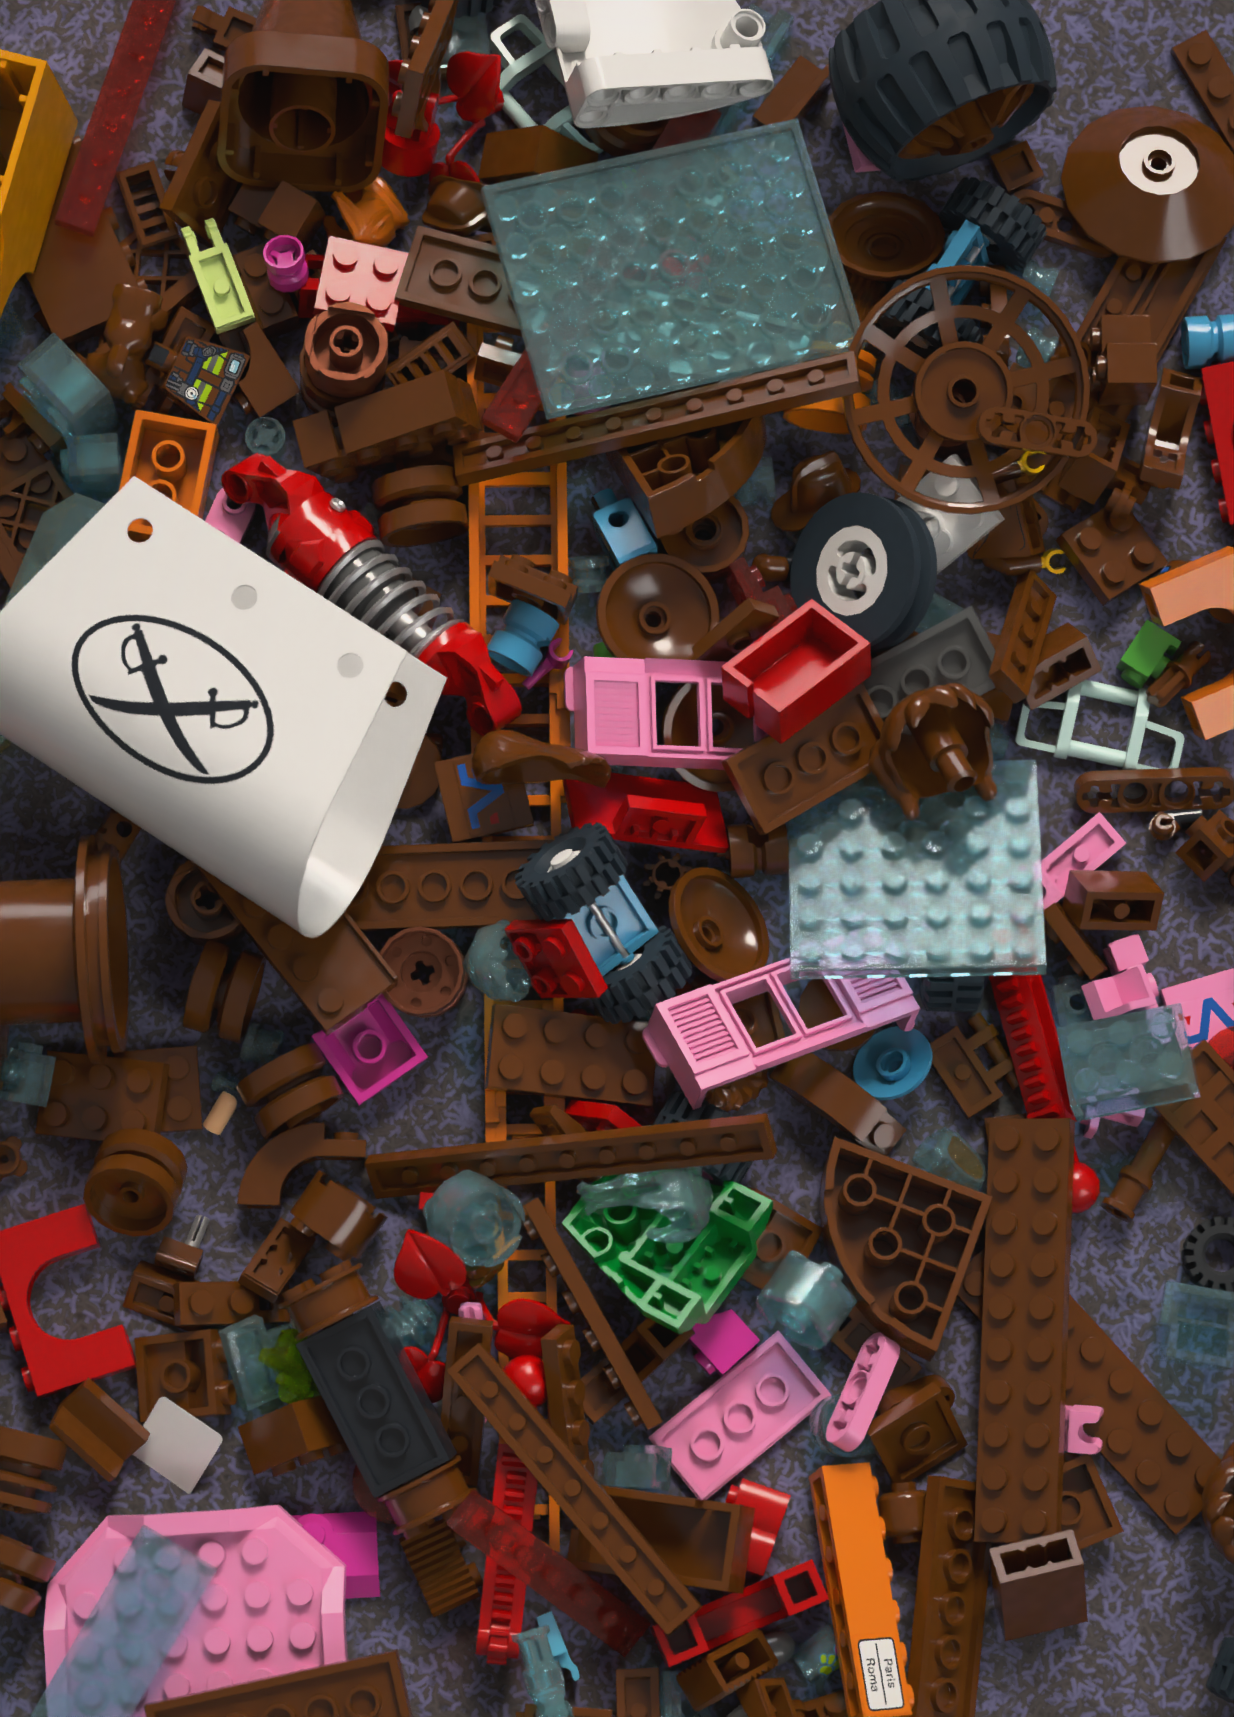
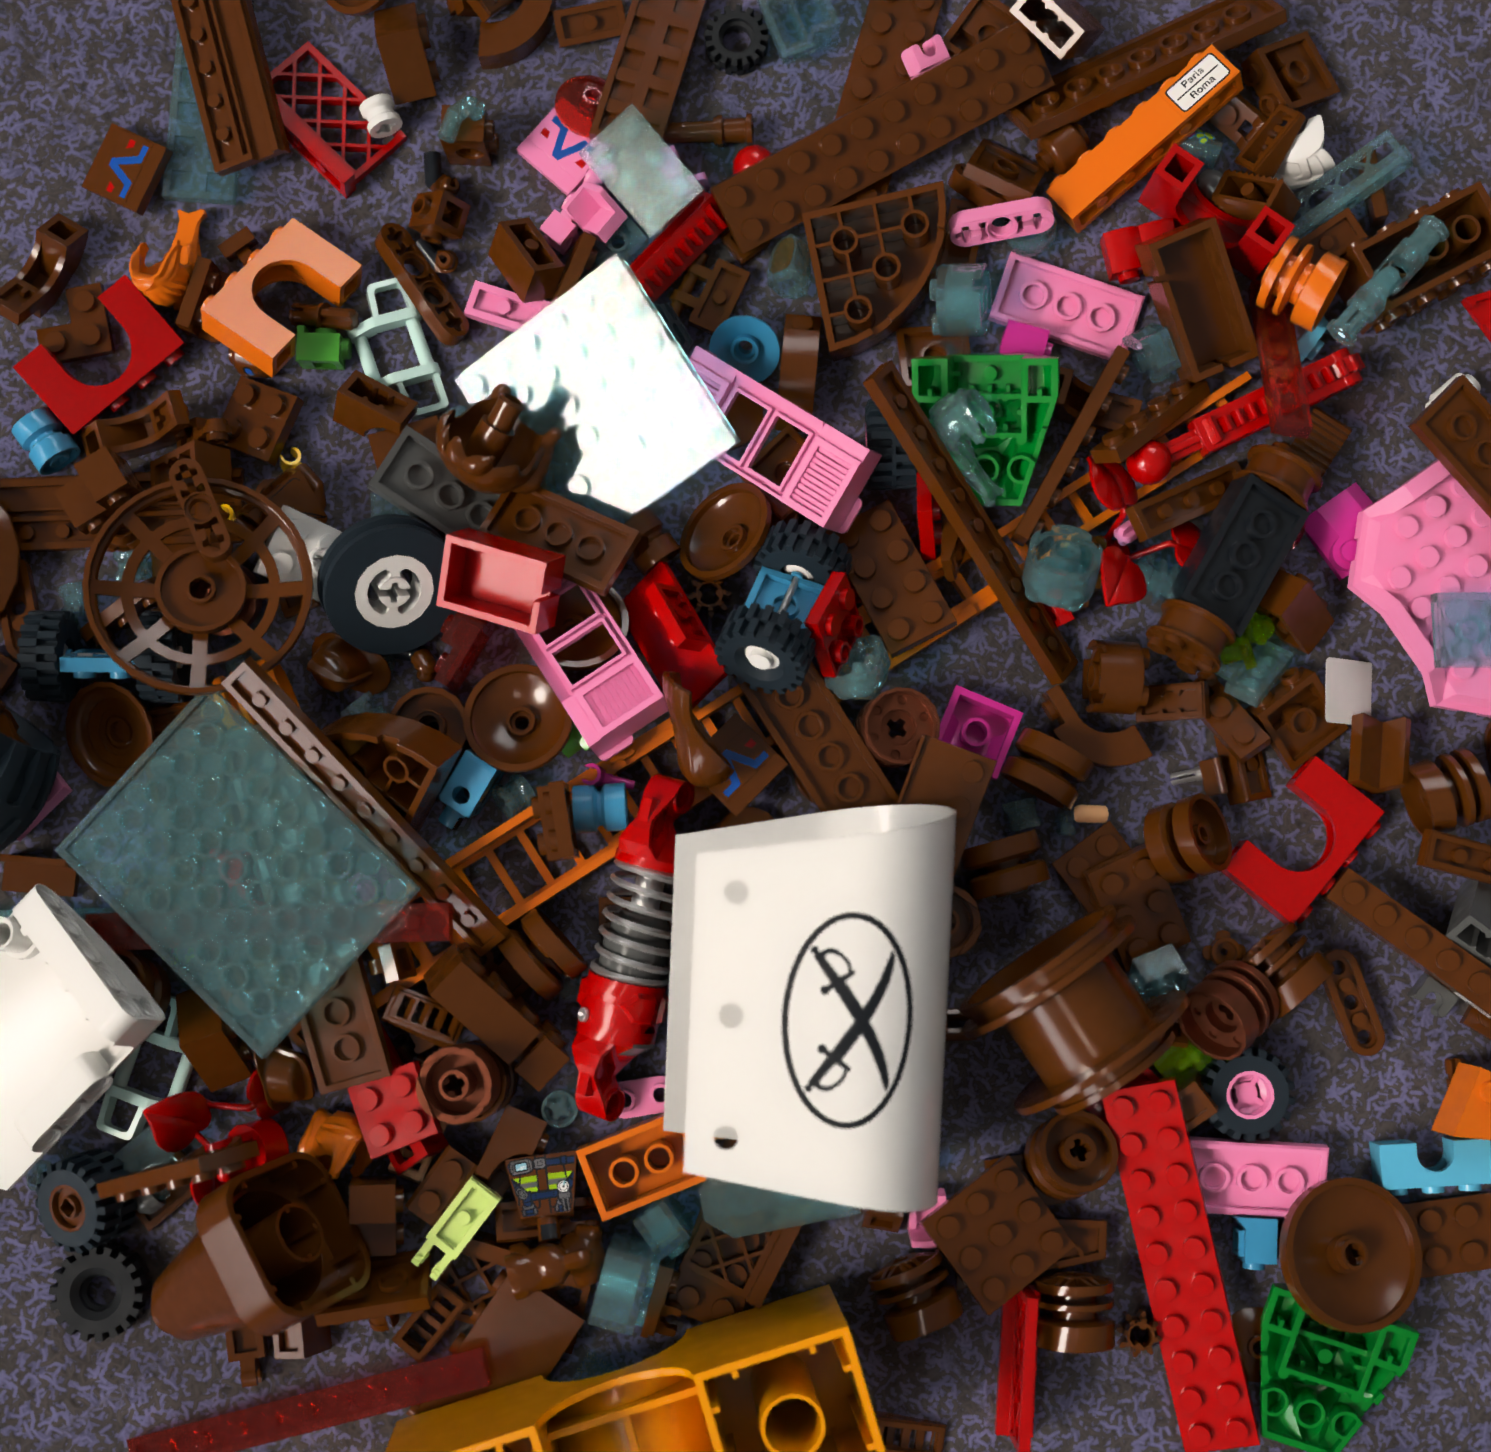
camera: 115 degrees left, 5 degrees up
(285, 263) = (415, 1178): dark pink wheel -> none
(574, 1489) = (1214, 370): reddish brown plate -> none
(615, 1643) = (1301, 283): none -> orange wheel
(735, 631) = (497, 646): reddish brown plate -> none
(1022, 636) = (367, 436): reddish brown plate -> none

